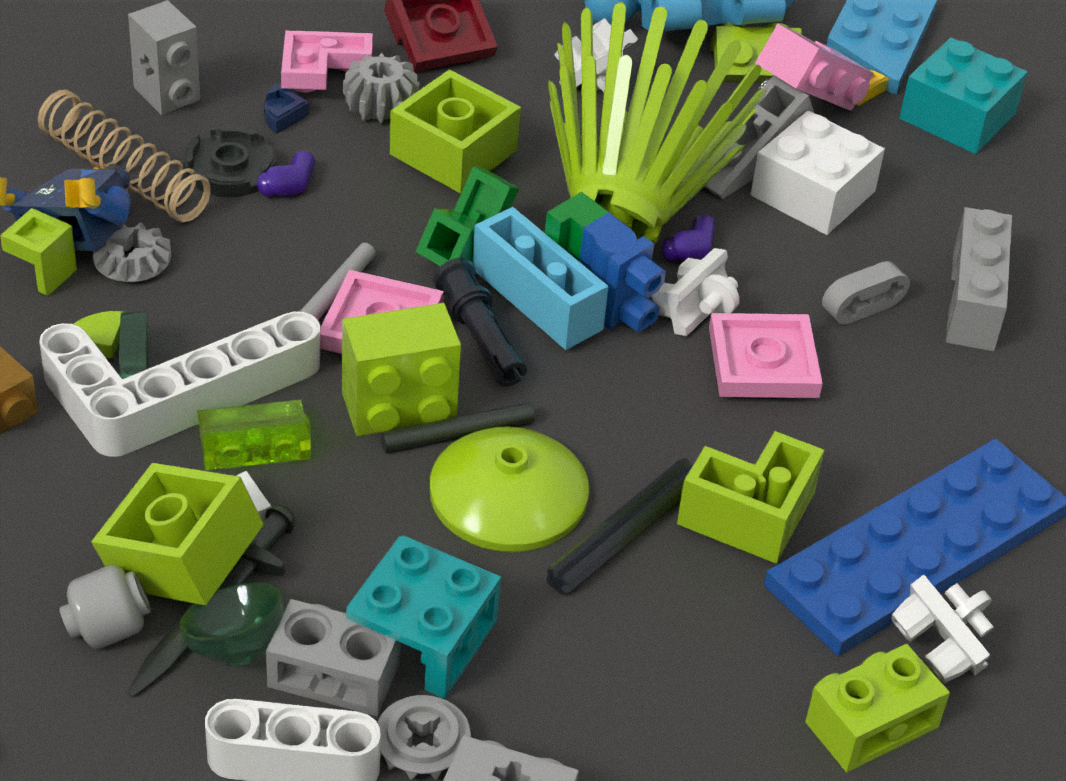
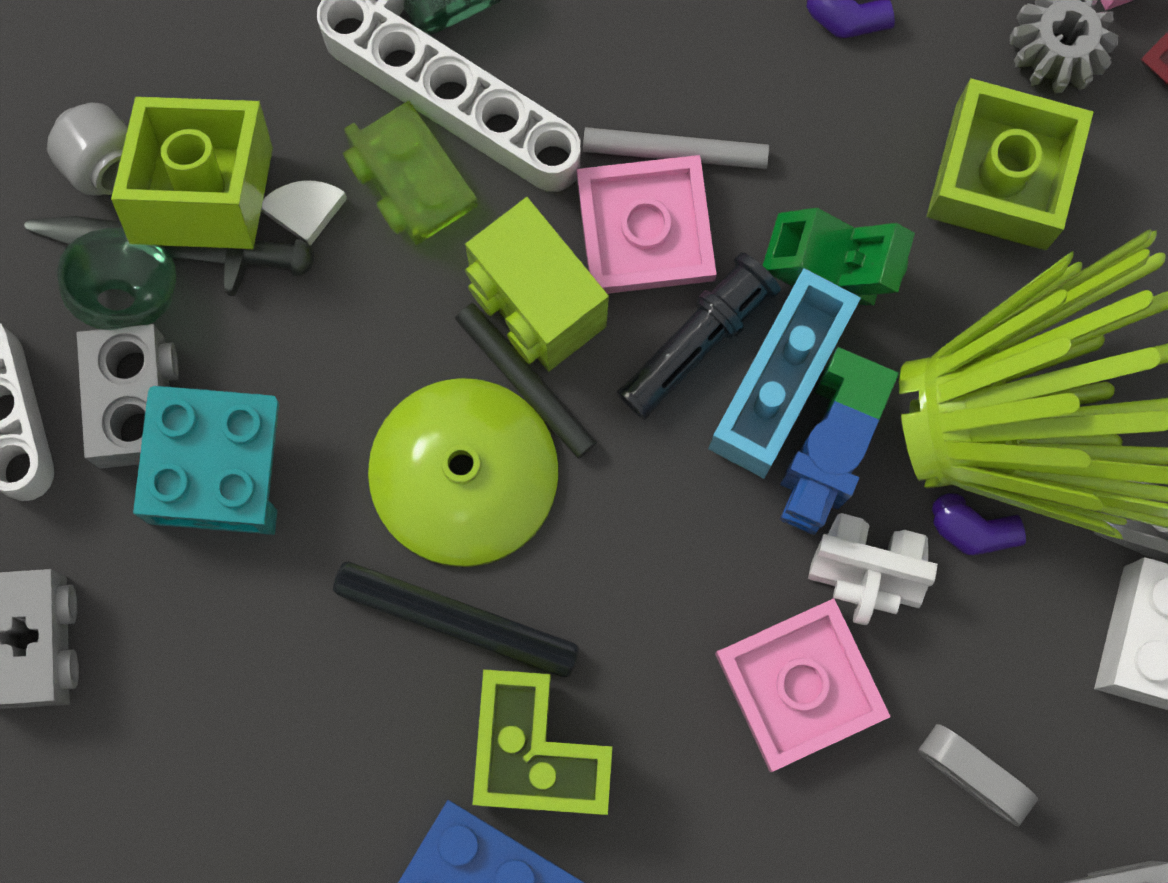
camera: 70 degrees right, 35 degrees up
(421, 716) = (64, 498): light grey gear -> none

